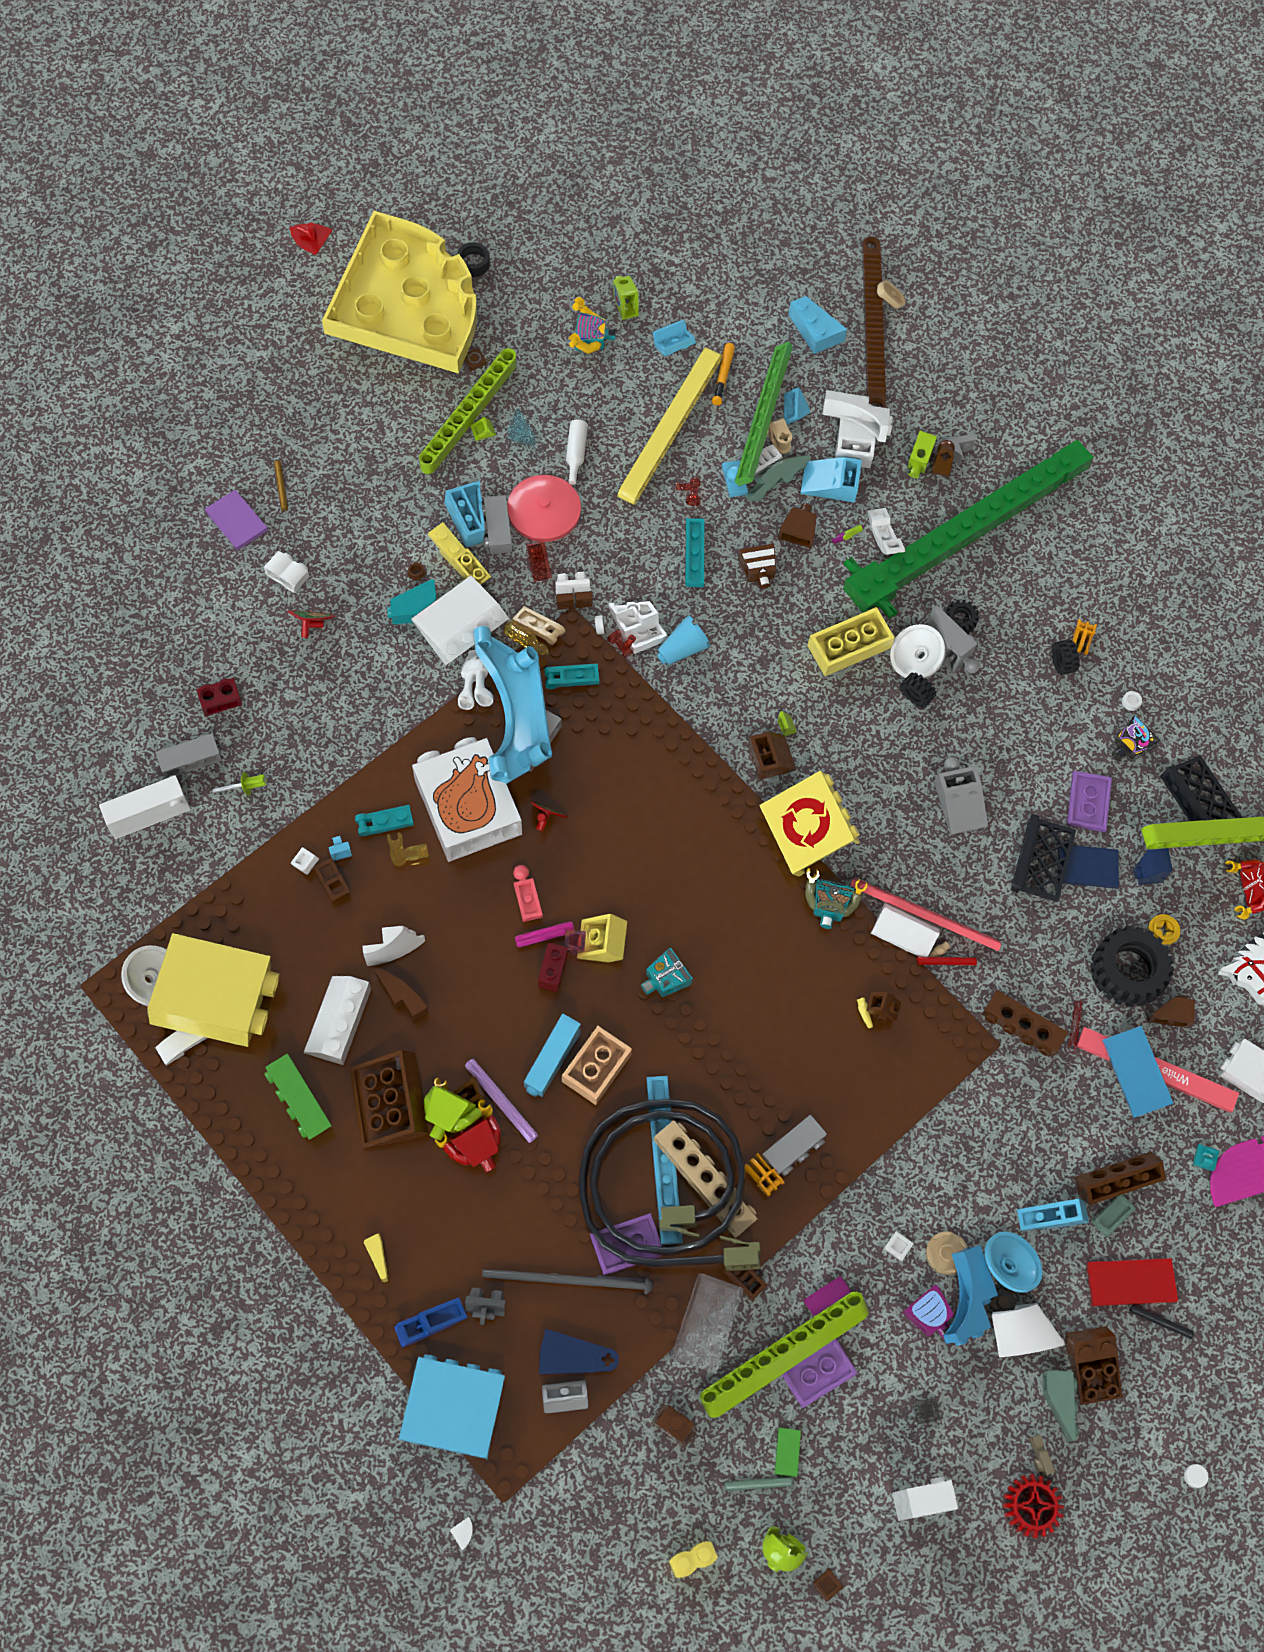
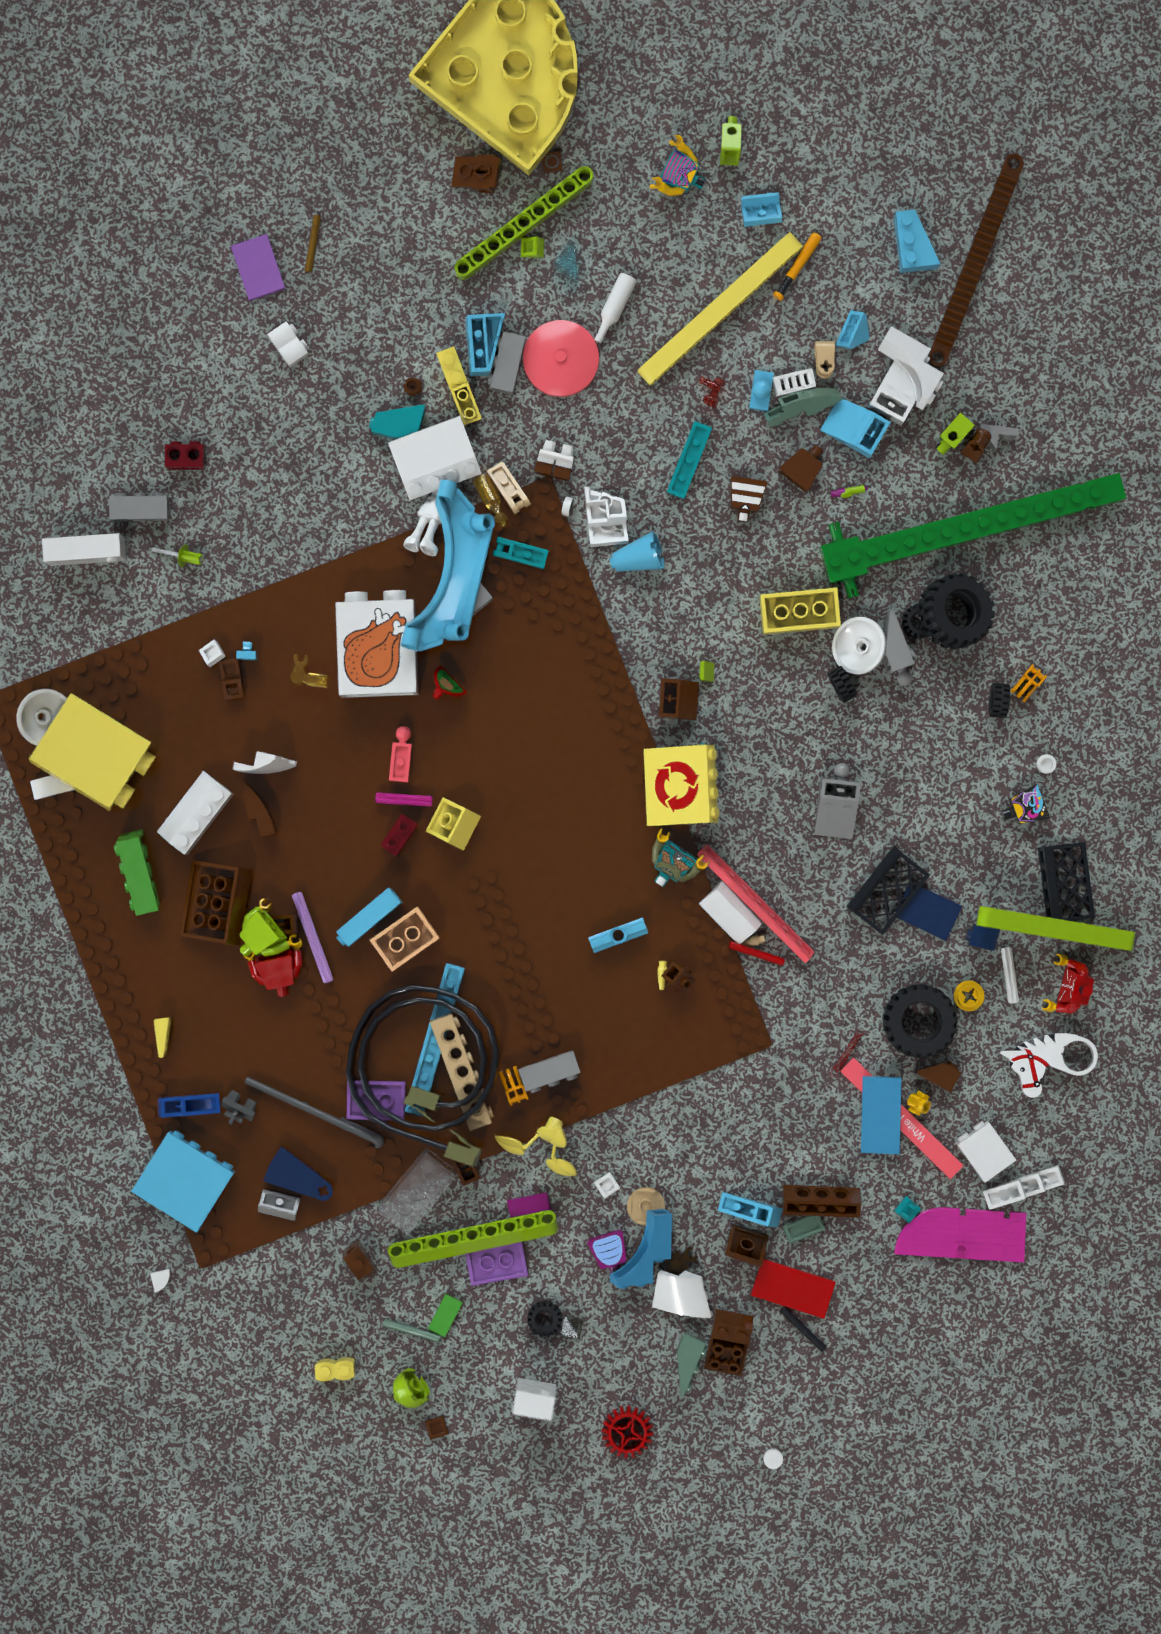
camera: 30 degrees right, 20 degrees up
(310, 620) = (295, 403): red shield -> none
(384, 820) = (298, 637): teal plate -> none
(406, 384) = (470, 173): none -> reddish brown piece
(479, 249) = (591, 26): black tyre -> none
(538, 561) = (533, 419): clear red slope -> none
(575, 941) = (427, 817): clear pink slope -> none
(615, 638) = (582, 537): clear red piece -> none
(666, 975) = (497, 878): torso -> none
(763, 414) = (816, 331): bright green plate -> none
(798, 996) = (605, 939): none -> medium azure piece
(823, 1204) = (552, 1133): none -> light yellow plant
(883, 532) = (882, 506): white slope -> none
(890, 294) = (1006, 235): tan plate -> none
(907, 1413) = (552, 1327): none -> black tyre
(982, 605) = (976, 602): none -> black tyre
(1013, 1262) = (704, 1233): medium azure dish -> none
(1042, 1462) = (650, 1401): dark tan plate -> none
(1054, 1034) = (822, 1056): reddish brown brick -> none
(1066, 1254) = (746, 1245): none -> reddish brown slope
(1089, 801) = (958, 848): medium lavender tile -> none
(1167, 1047) = (918, 1103): none -> yellow gear
(1192, 897) = (1010, 976): none -> white axle

